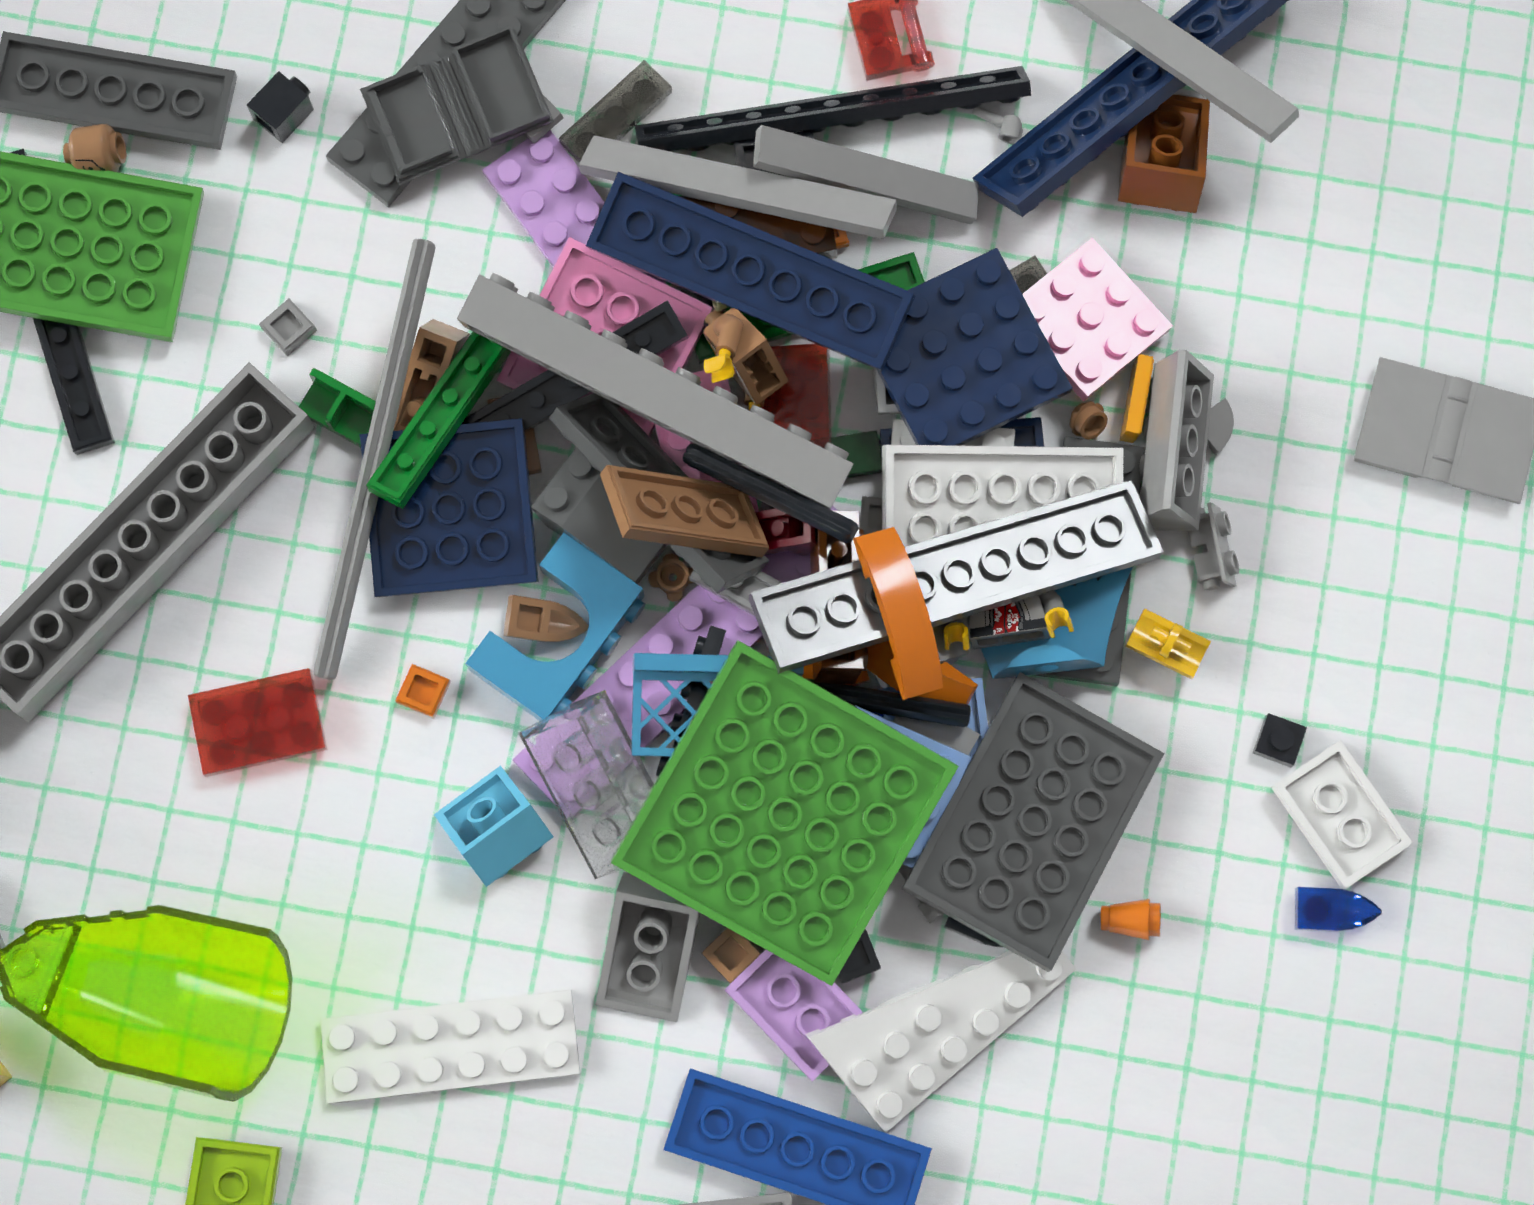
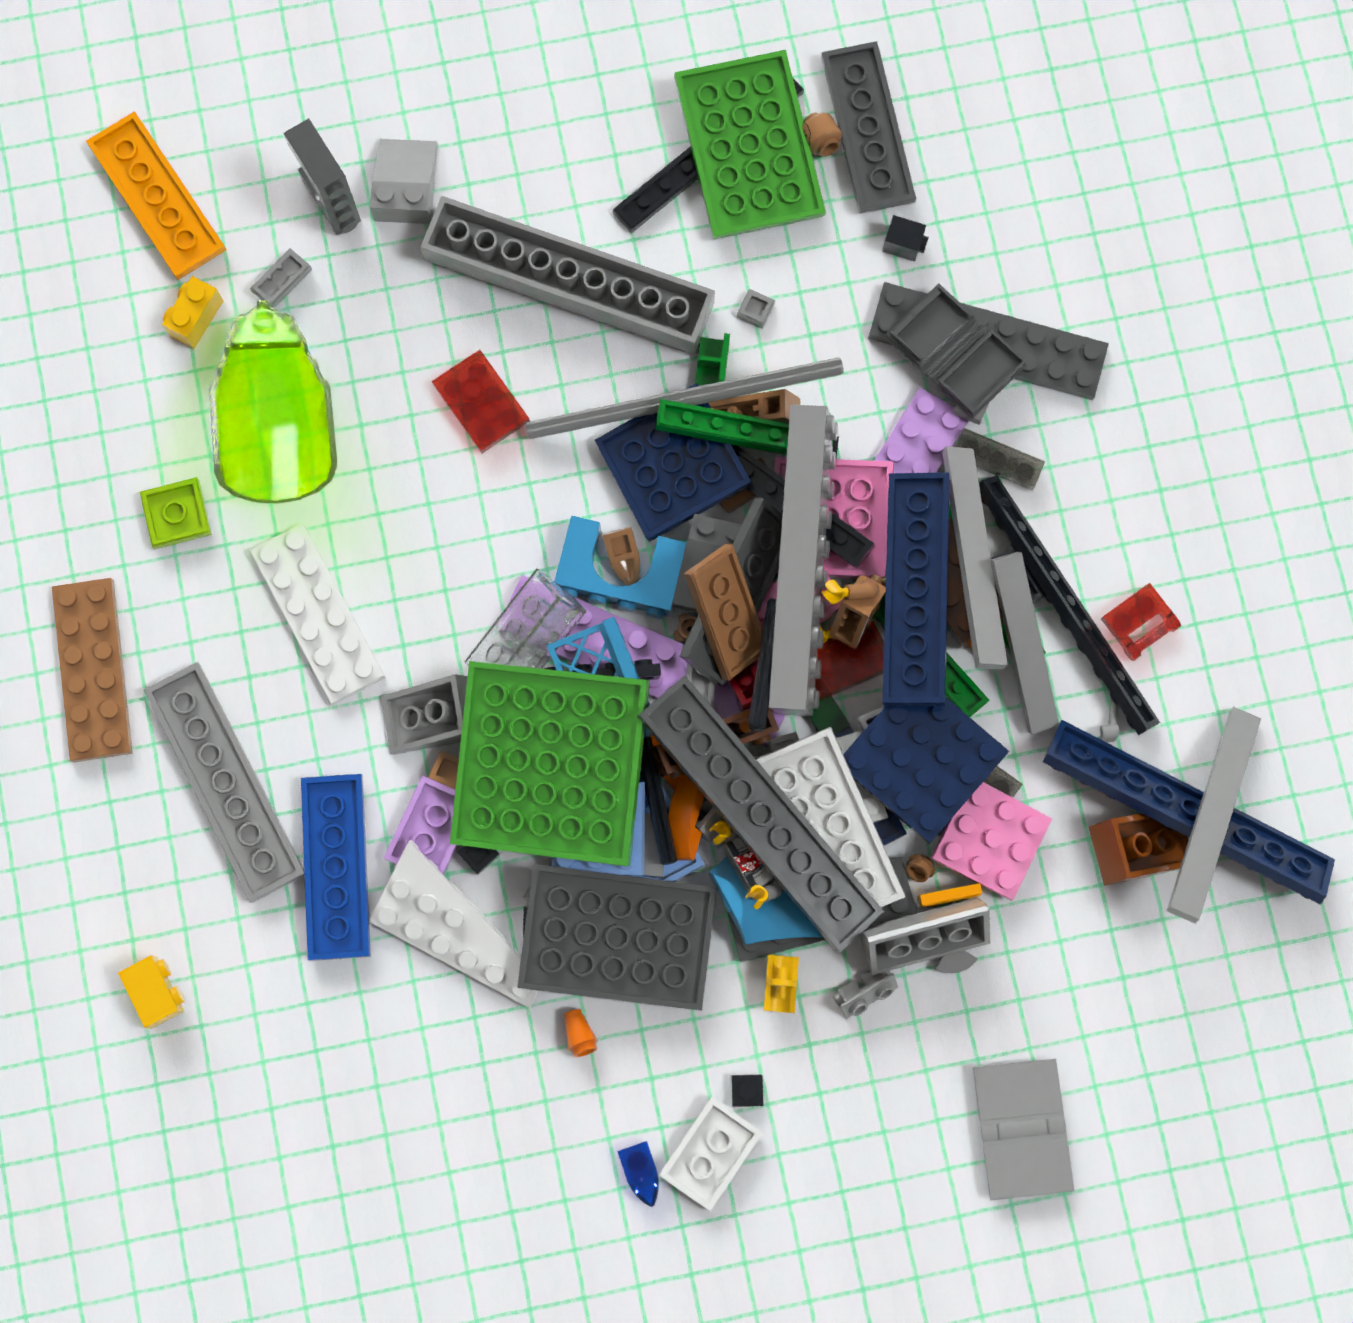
camera: 70 degrees right, 0 degrees up
(423, 691) = (545, 498): orange tile -> none
(493, 826) = (471, 580): medium azure slope -> none
(903, 612) = (715, 782): orange slope -> none

